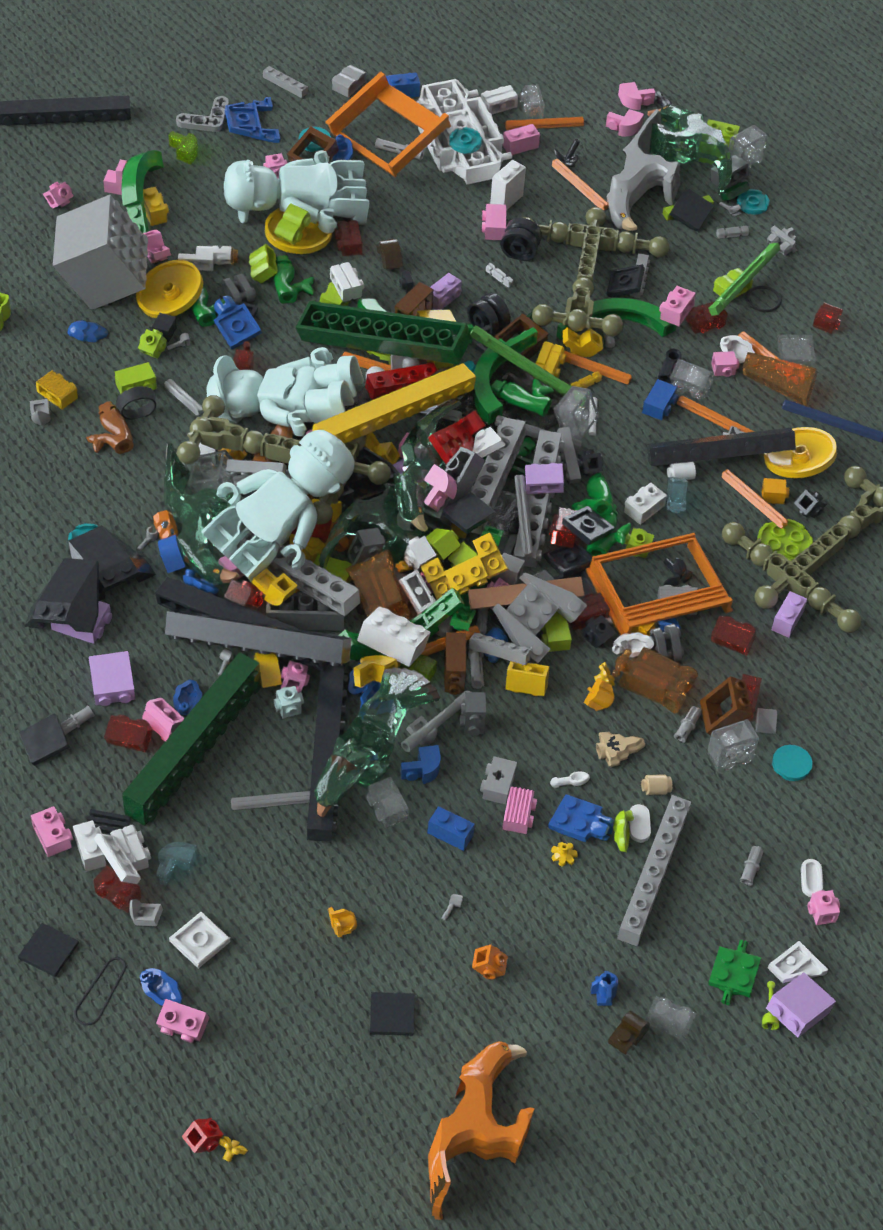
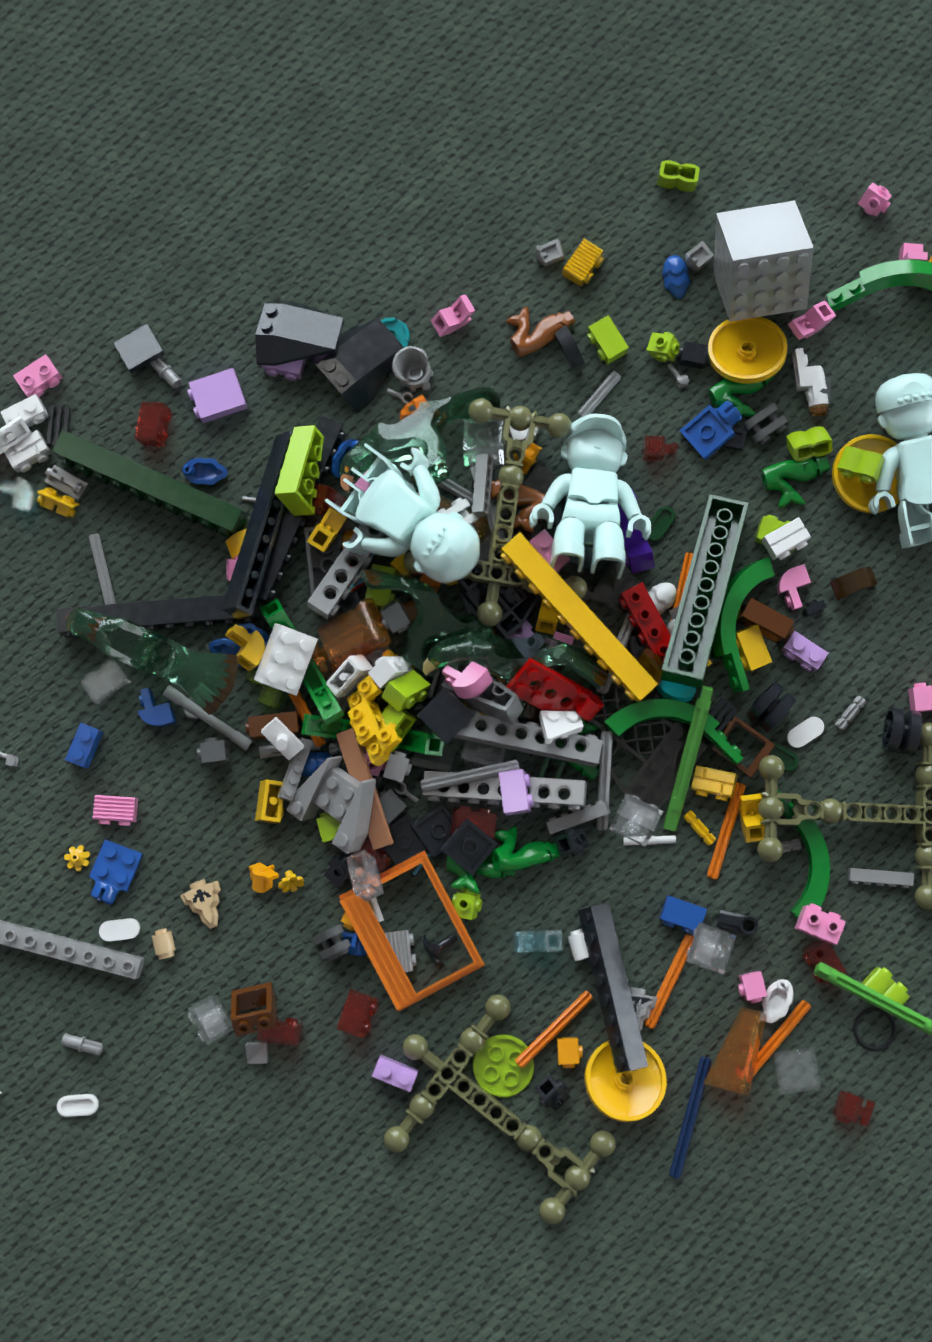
camera: 90 degrees right, 30 degrees up
(74, 311) = (698, 257): none -> light grey plate
(81, 483) = (453, 317): none -> bright pink brick
(125, 521) = (412, 368): none -> light grey hair
(155, 208) = (878, 306): yellow brick -> none
(162, 717) = (171, 454): bright pink brick -> none
(170, 821) = (65, 482): none -> light grey hinge
(171, 553) = (372, 417): blue brick -> none
(194, 823) = (65, 504): none -> yellow hinge
(211, 597) = (300, 470): none -> lime wedge
(288, 701) = (213, 575): light aqua brick -> none
(349, 238) = (872, 533): clear red brick -> none
(383, 294) = (789, 583): none -> bright pink brick
(471, 644) = (282, 738): none -> white tile
(499, 780) = (136, 780): light grey brick -> none
(513, 303) = (805, 732): none -> white tile
(520, 397) = (645, 752): green piece -> none
(575, 779) = (163, 862): white piece -> none
(608, 597) = (364, 875): none -> clear brick
(622, 829) = (104, 913): lime arm -> none
(625, 281) = (864, 861): black tile -> none
(633, 641) = (331, 906): white arm -> none
(645, 503) = (527, 907): white brick -> none
(655, 678) = (291, 932): clear orange piece -> none
(688, 724) = (242, 971): light grey axle -> none
(792, 762) = (211, 1081): teal tile -> none
(824, 907) = (31, 1117): bright pink brick -> none

